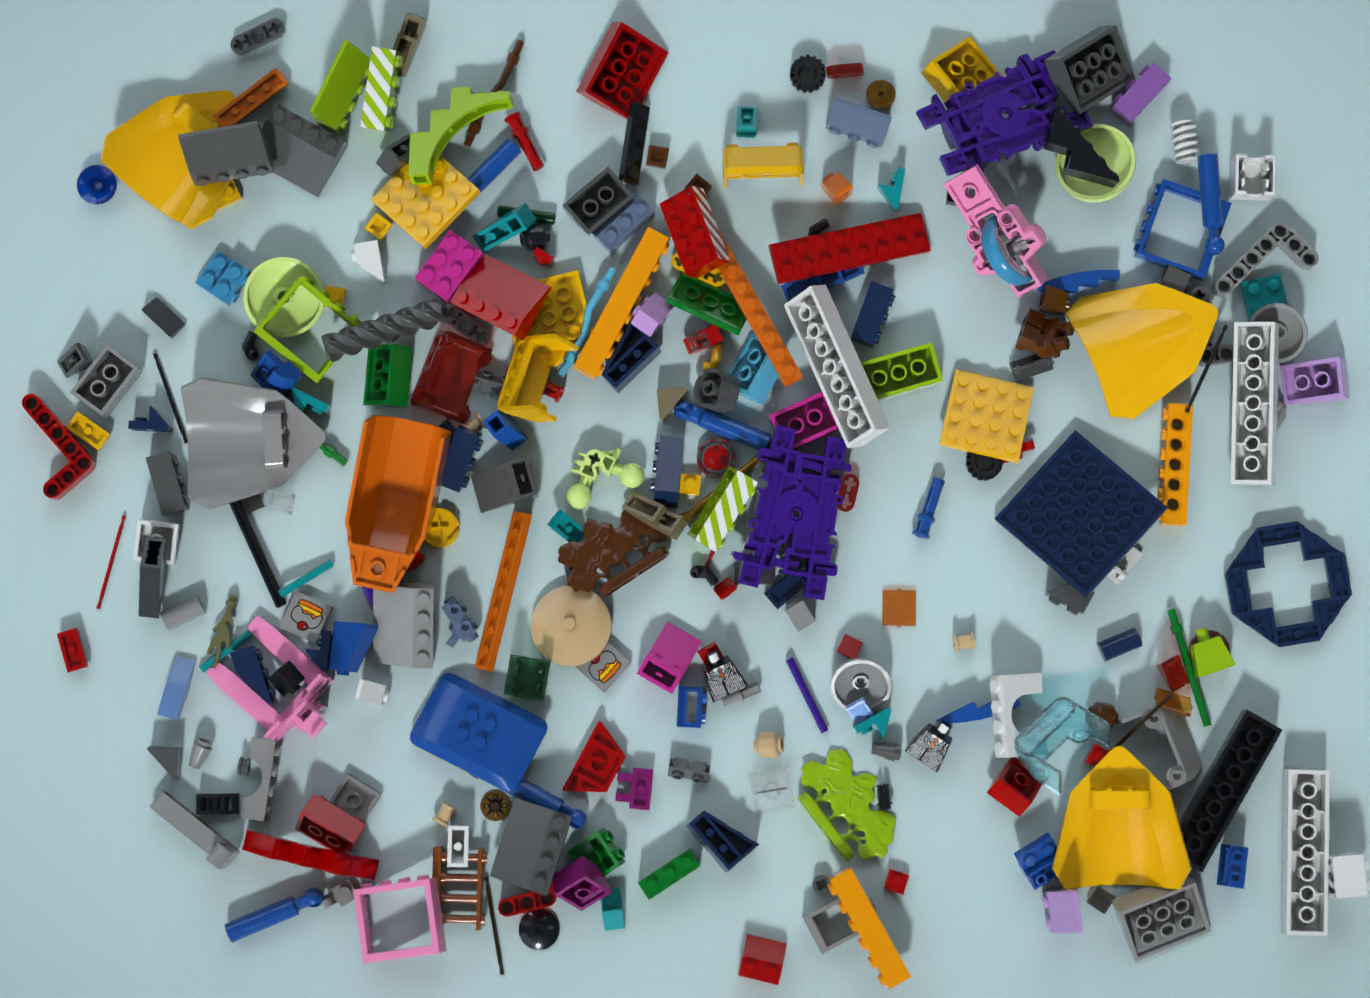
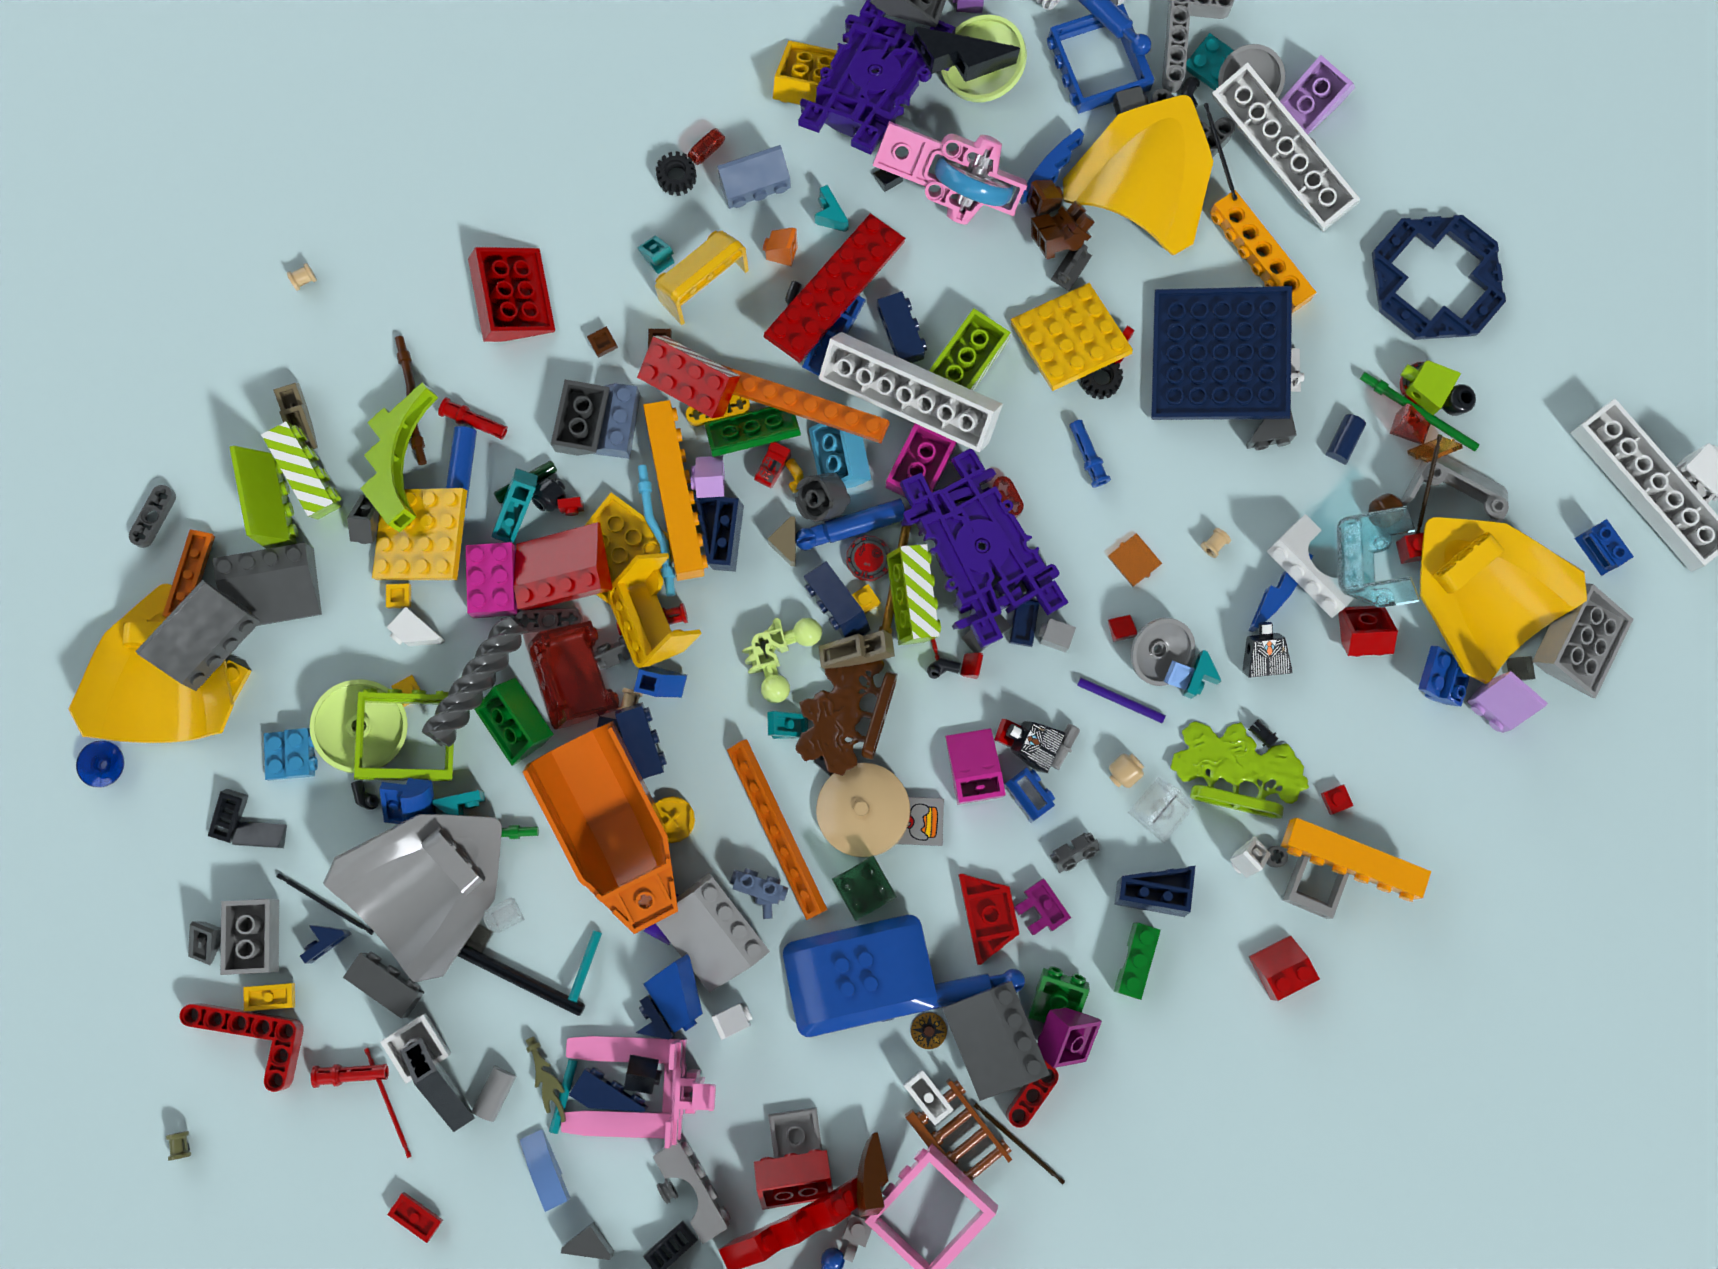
camera: 45 degrees left, 5 degrees down
(94, 519) = (337, 1074): none -> red pin
(169, 283) = (222, 803): none -> black slope
(199, 753) = (614, 1212): light grey cone -> none
(305, 617) = (613, 1002): light grey tile -> none
(379, 866) = (871, 1178): none -> reddish brown slope
(418, 559) = (676, 866): red plate -> none
(444, 814) = (890, 1078): tan bush -> none
(504, 484) = (699, 732): dark grey slope -> none
(543, 919) = (1049, 1112): black dish -> none
(612, 910) = (1114, 1037): teal slope -> none
(634, 143) = (571, 345): black plate -> none
(802, 869) = (1250, 857): none -> white slope
(880, 94) = (752, 141): pearl gold piece -> none
(887, 750) = (1232, 690): dark grey cone -> none
(1221, 682) = (1460, 400): none -> black head
(1226, 785) = (1539, 477): black brick -> none
(1227, 303) = (1189, 87): none -> black arm

